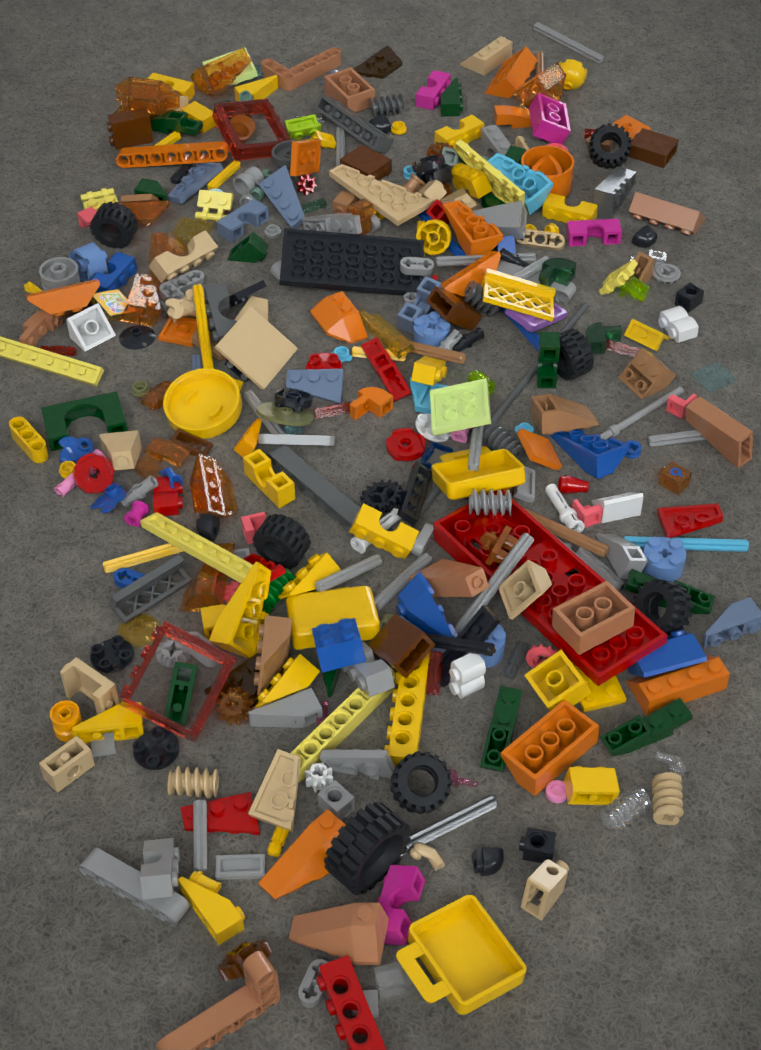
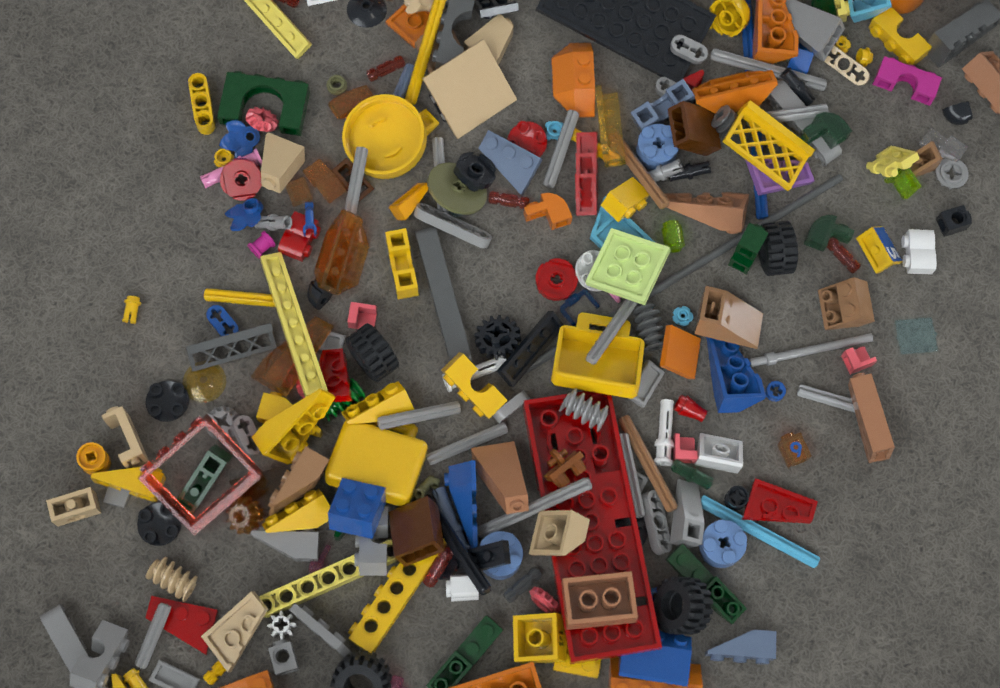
camera: 20 degrees right, 25 degrees up
(40, 598) = (131, 308): none -> yellow pin
(88, 431) = (255, 119): none -> coral gear
(176, 365) = (385, 68): none -> clear red axle
(194, 432) = (356, 179): none -> light grey axle
(354, 361) = (561, 148): none -> light grey axle
(510, 354) = (722, 213): none -> nougat wedge
(605, 525) = (692, 474): none -> clear green axle
(652, 525) = (740, 497): none -> black wheel

